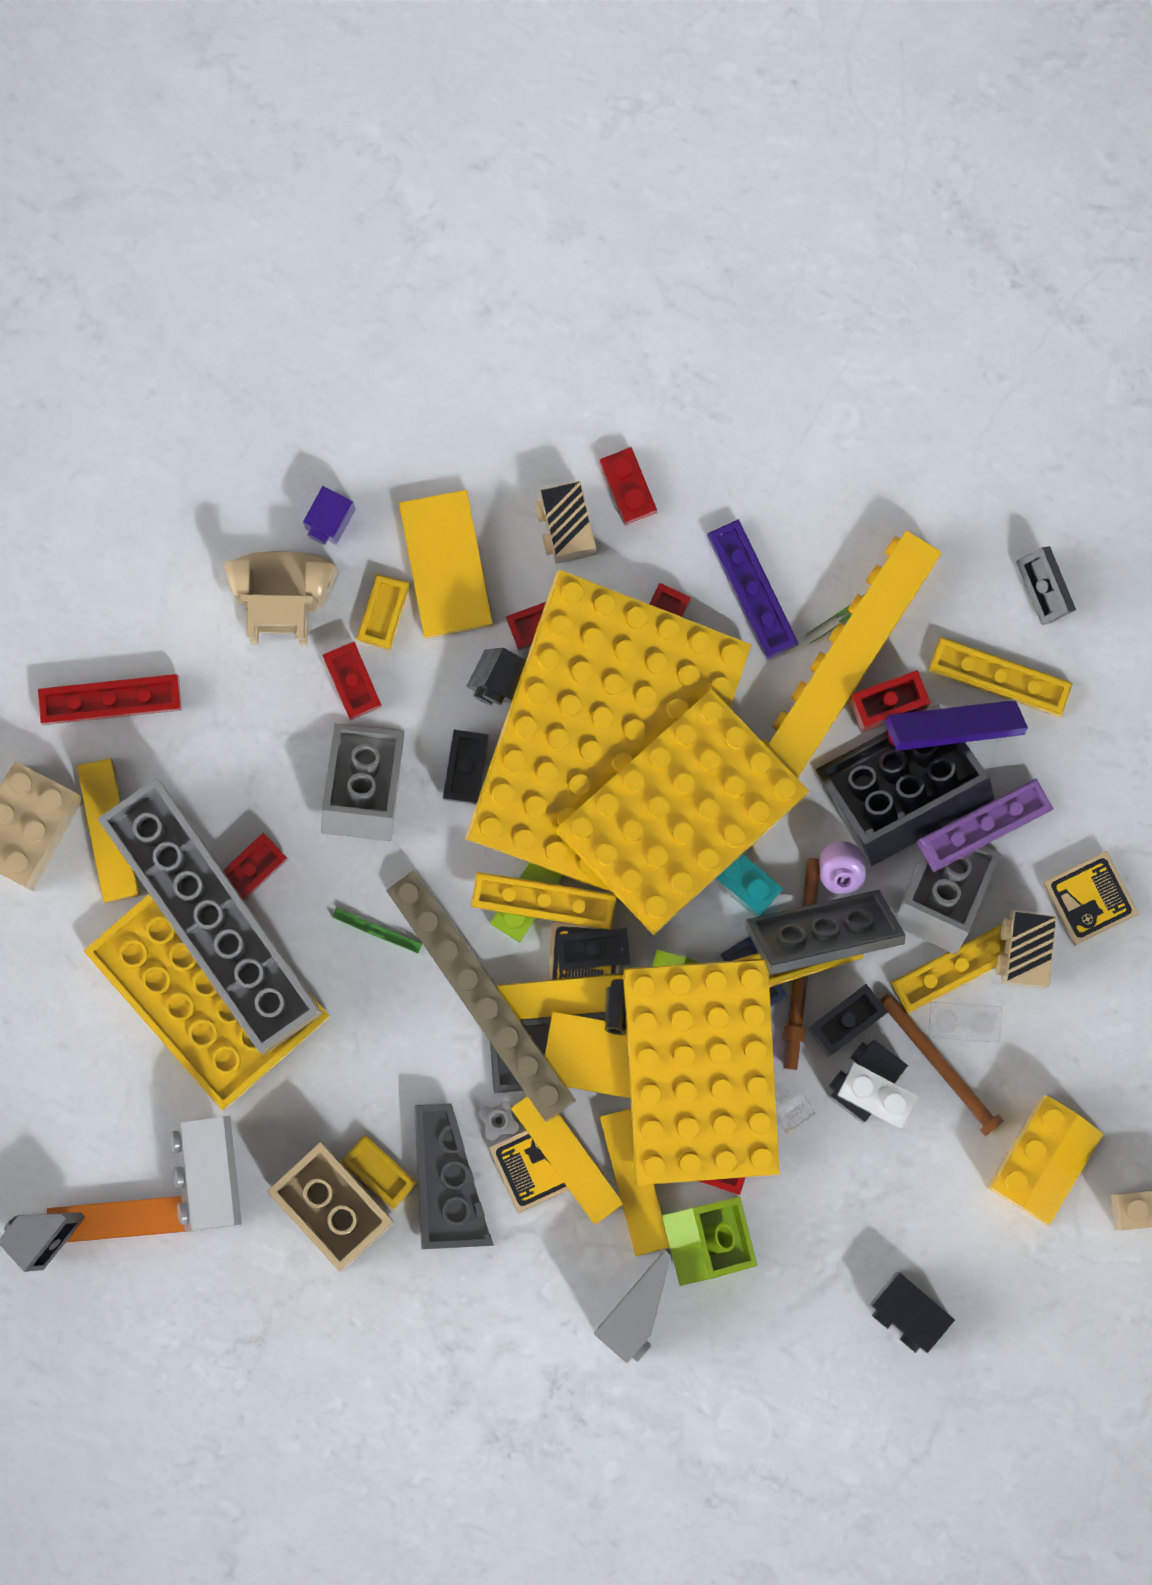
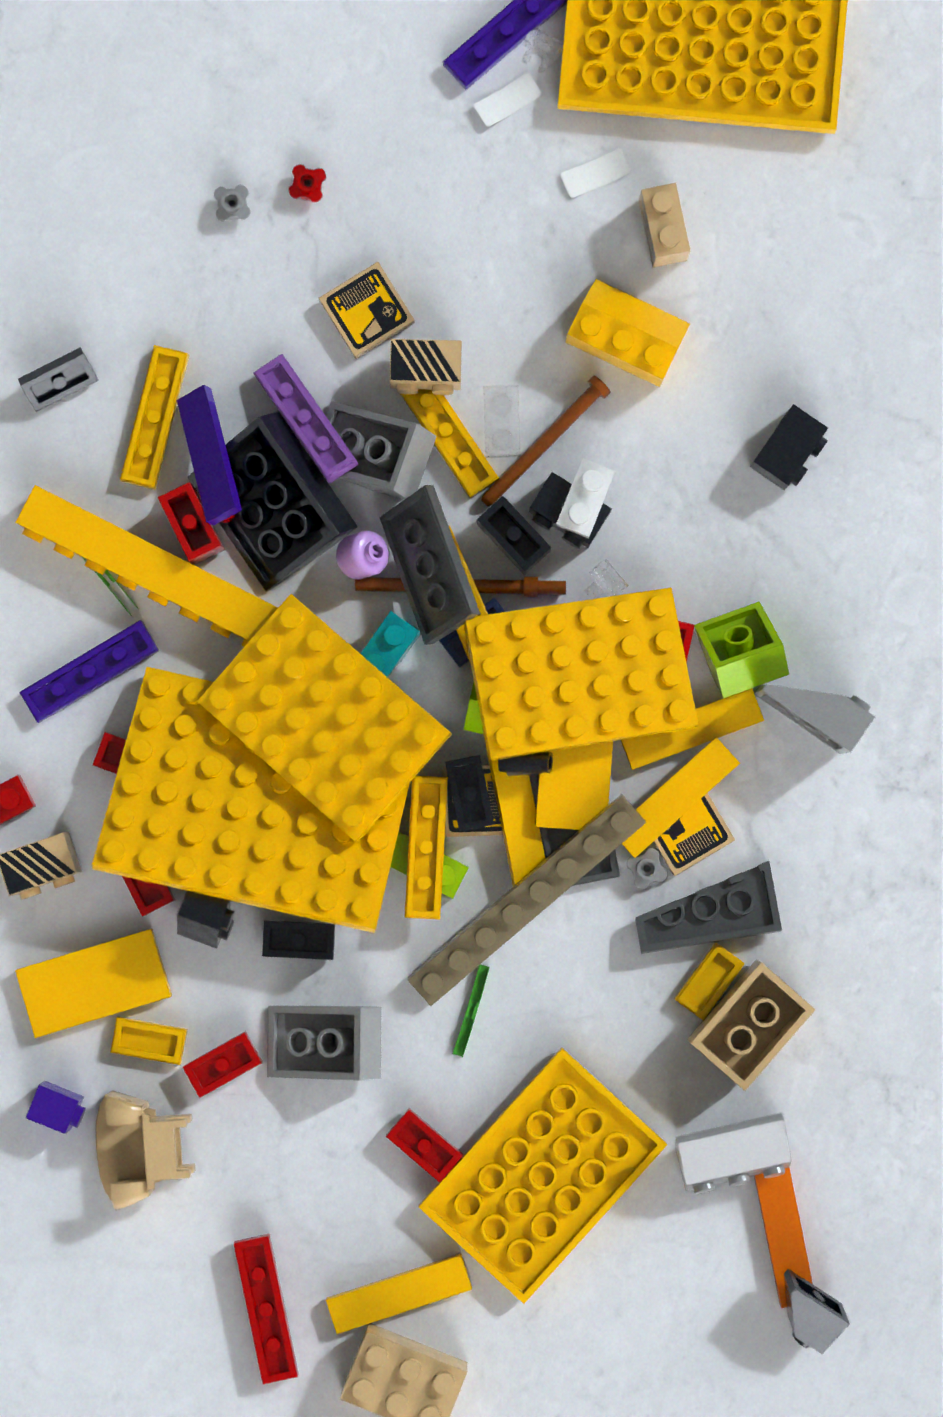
camera: 100 degrees left, 5 degrees up
(210, 916) = (477, 1181): light grey brick -> none

